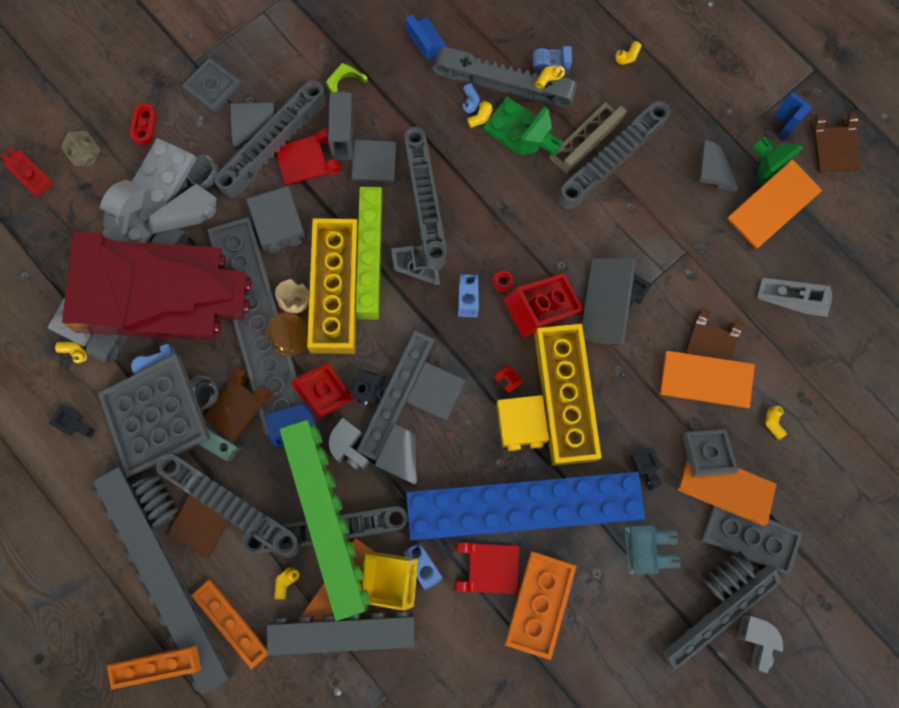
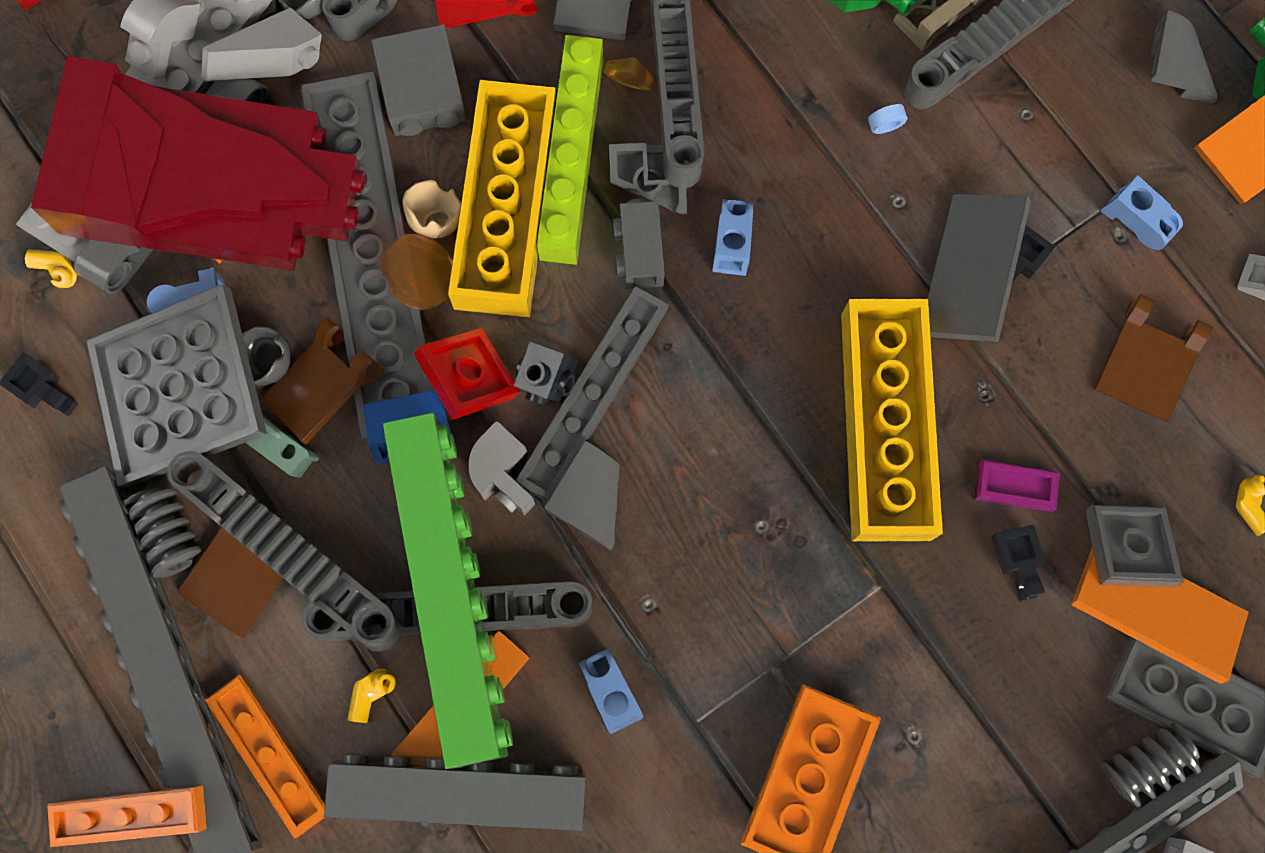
camera: 10 degrees right, 0 degrees up
(390, 580) = (551, 708): yellow piece -> none
(399, 204) = (629, 73): none -> clear orange tile
(416, 306) = (641, 244): none -> dark grey brick
(435, 391) = (662, 394): dark grey tile -> none
(490, 568) = (728, 707): red flag -> none
(503, 275) = (795, 208): red plate -> none
(508, 379) = (790, 384): red plate -> none
(522, 422) = (807, 461): yellow piece -> none
(524, 506) = (800, 605): blue brick -> none
(543, 304) = (861, 262): red slope -> none
(550, 218) = (887, 119): none -> light blue tile
(642, 424) = (1017, 485): none -> magenta tile
(642, 550) = (1000, 704): clear light blue brick -> none
(701, 260) = (1144, 213): none -> medium blue leg
(707, 379) = (1138, 418): orange tile -> none

